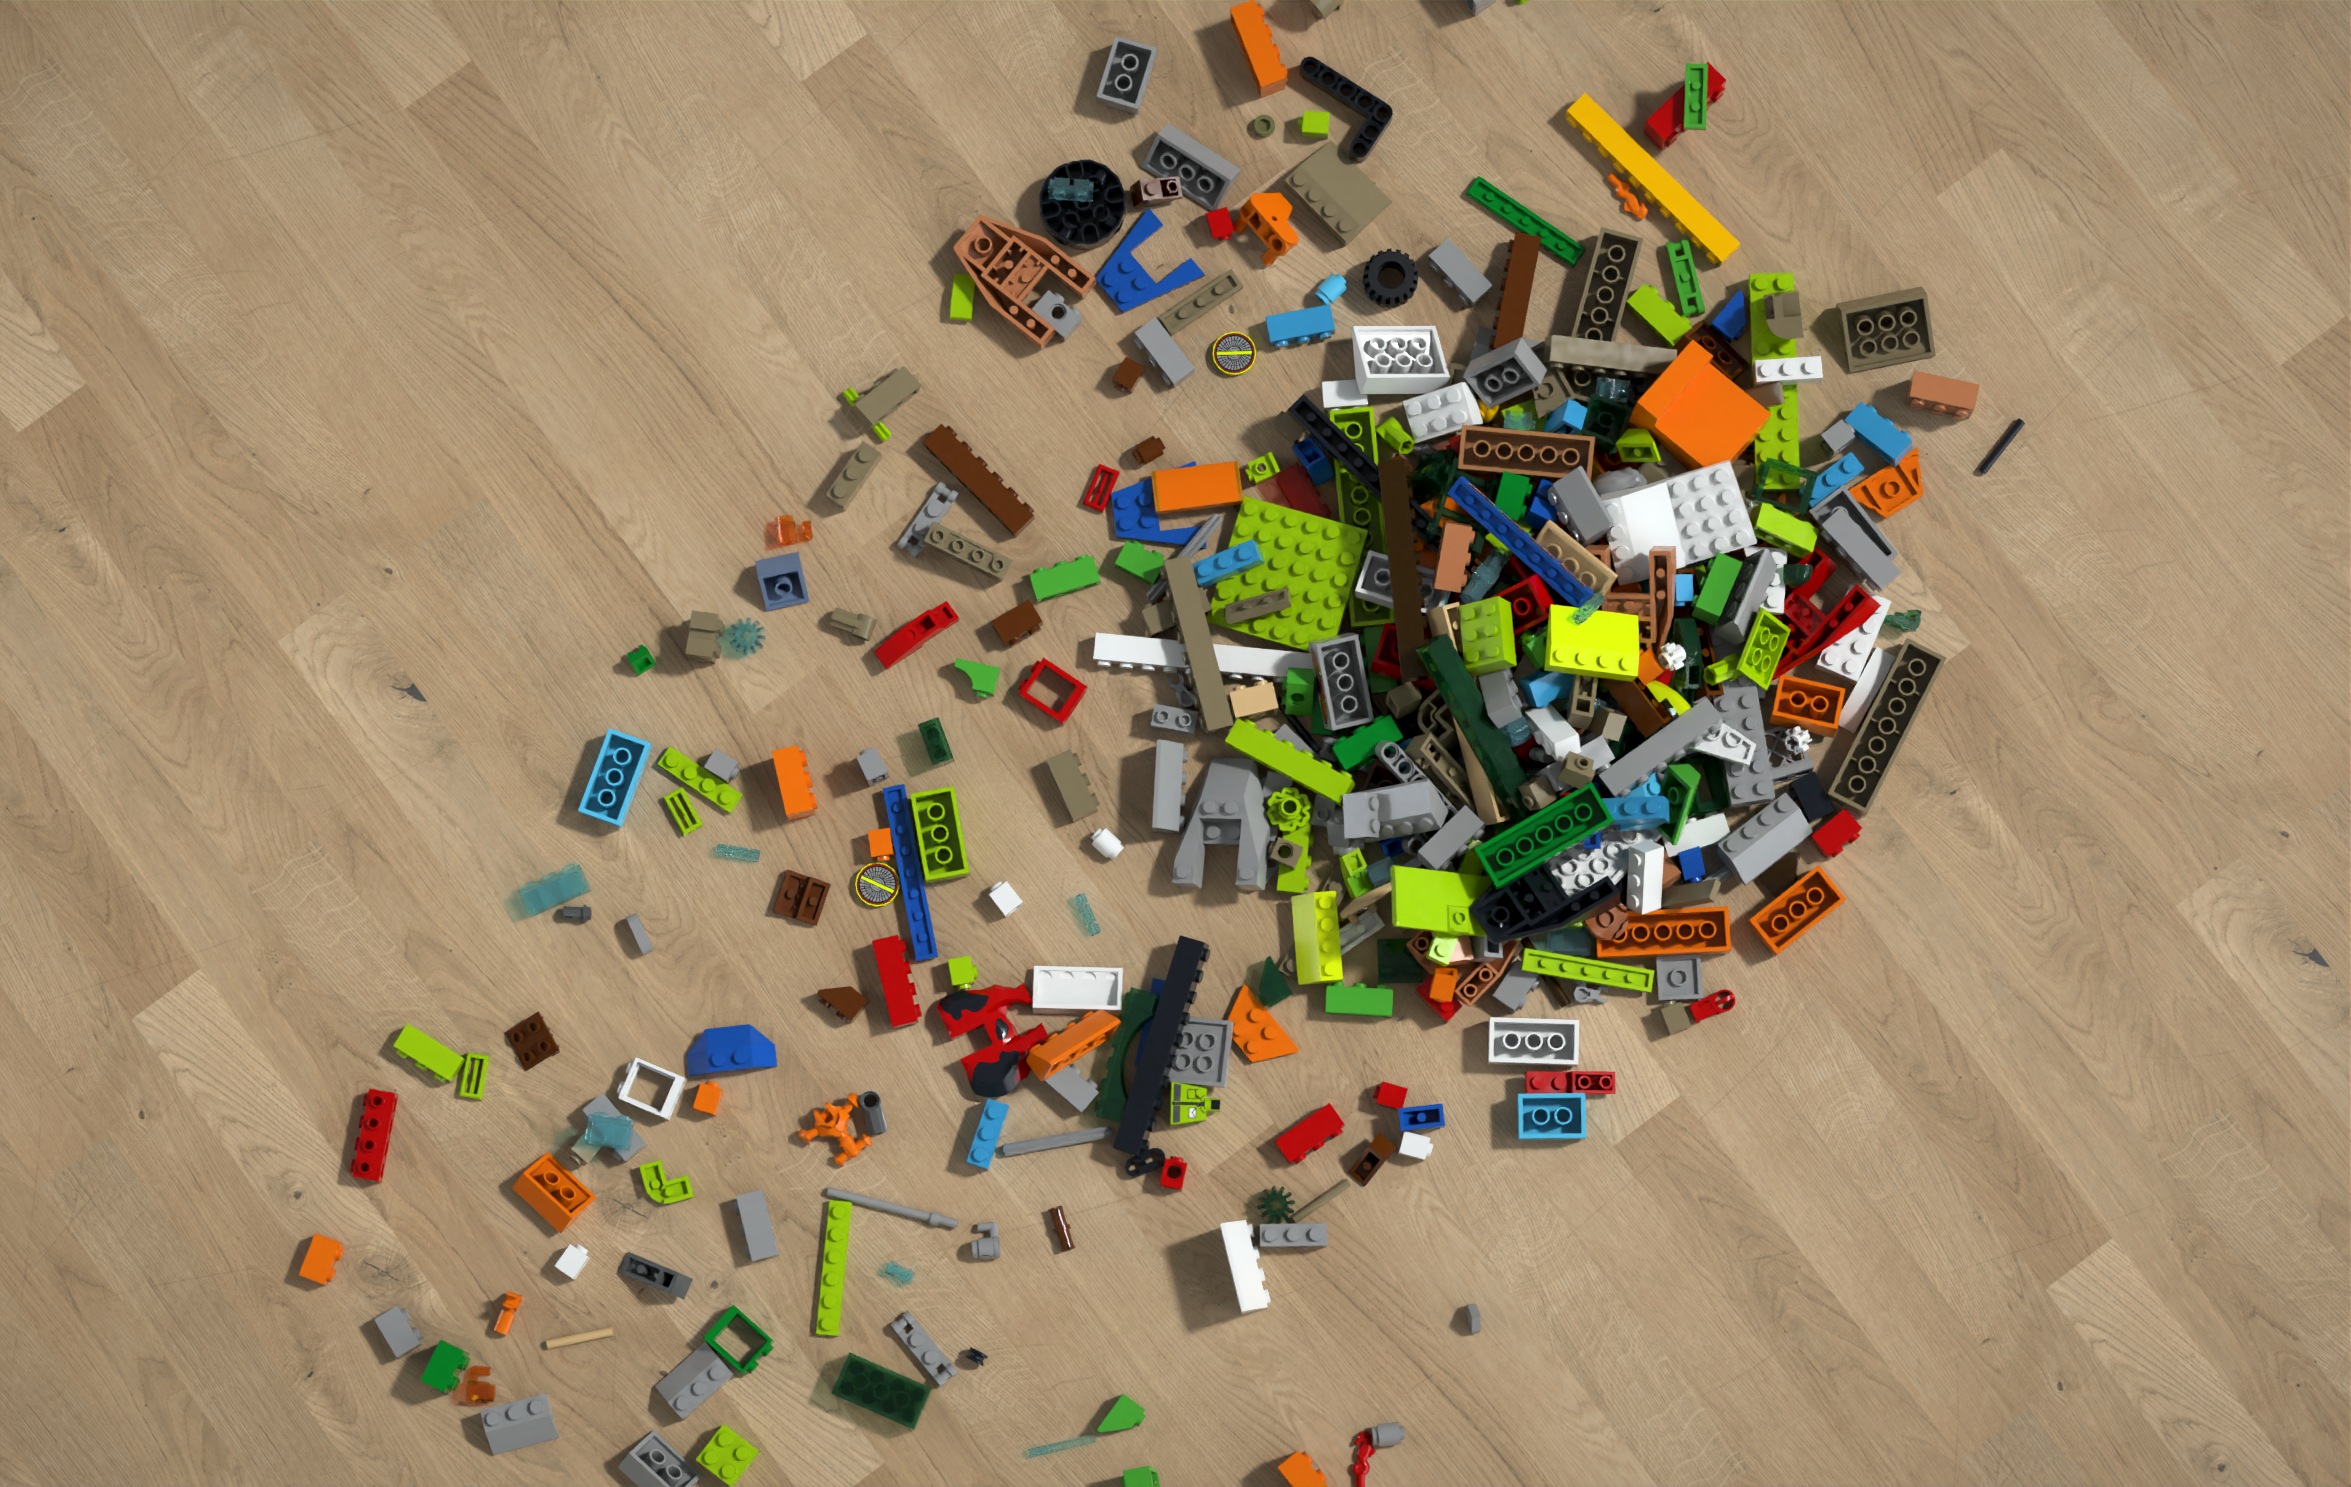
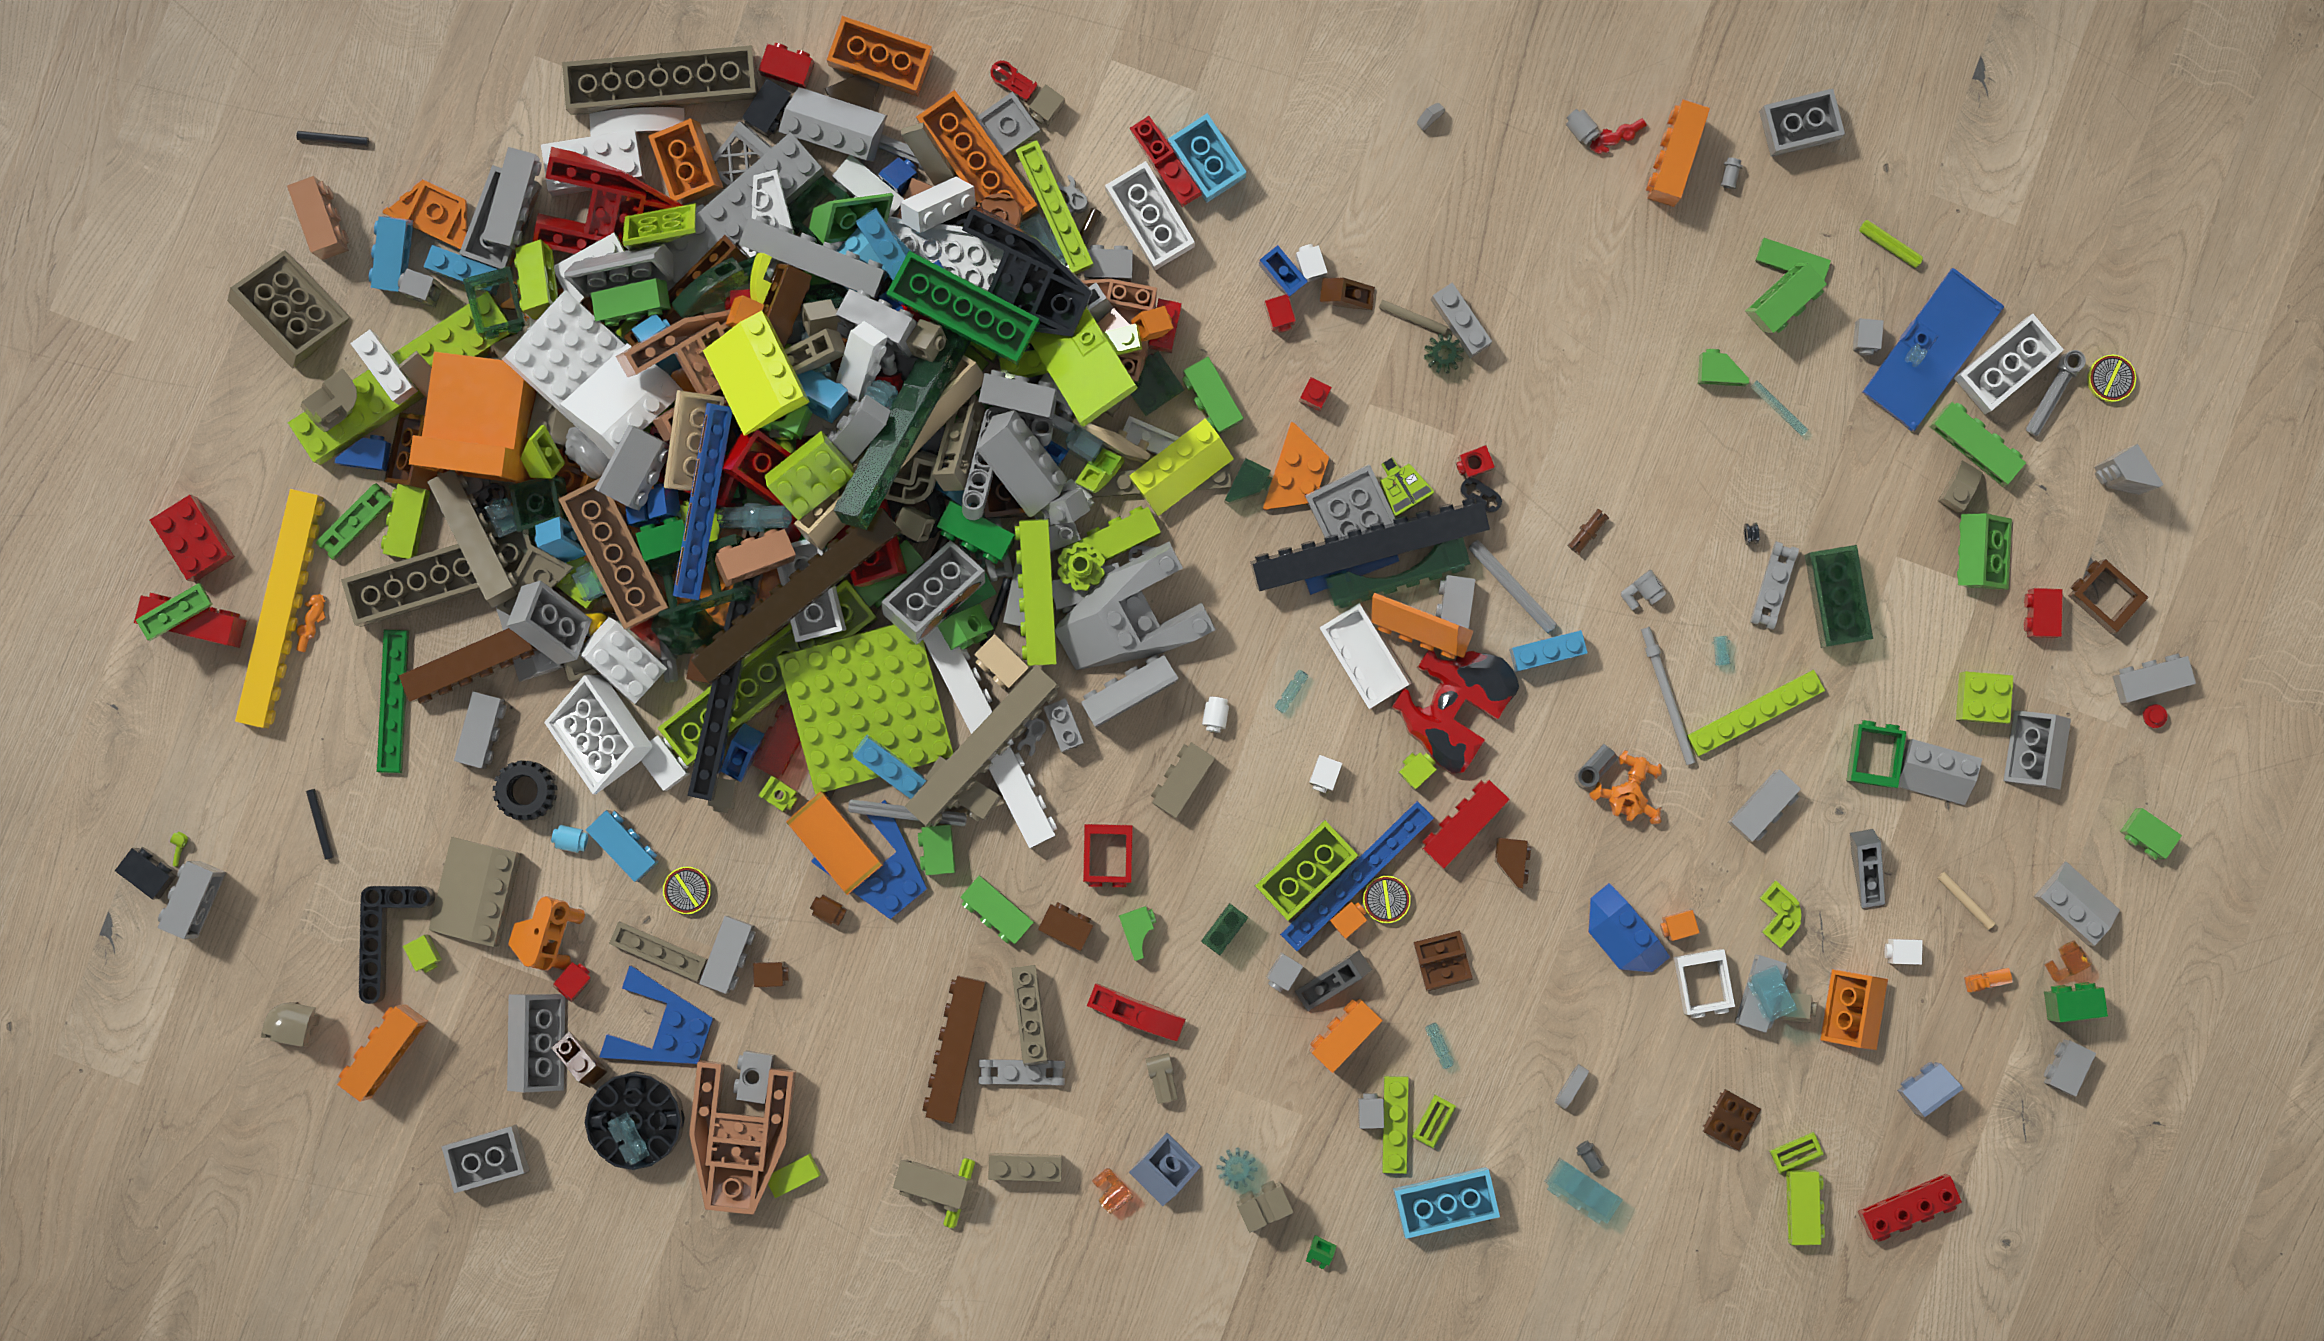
camera: 125 degrees left, 5 degrees up
(321, 1259) = (2051, 1181): orange brick -> none
(455, 1209) = (1929, 1089): none -> slope
(841, 803) = (1333, 980): none -> dark grey slope
(1094, 505) = (870, 935): red tile -> none
(1243, 1266) = (1519, 345): white slope -> none
(1258, 606) = (911, 713): dark tan plate -> none
(1263, 126) = (453, 1000): olive tile -> none
(1292, 860) = (1123, 533): dark tan brick -> none
(1308, 1082) = (1315, 394): none -> red brick
(1310, 1134) = (1360, 363): red brick -> none
(1361, 815) = (1047, 492): light grey brick -> none
(1392, 433) = (670, 695): lime piece -> none
(1465, 108) = (320, 824): none -> black bar
(1576, 770) = (885, 312): dark tan brick -> none
(1588, 608) = (724, 396): clear light blue axle -> none
(1672, 656) = (721, 297): white gear -> none
(1722, 670) = (702, 246): lime piece -> none
(1750, 146) = (192, 538): none -> red brick
(1797, 574) = (570, 241): clear green piece -> none
(1797, 739) = (723, 150): white gear -> none
(1904, 622) = (550, 120): clear green bracket -> none

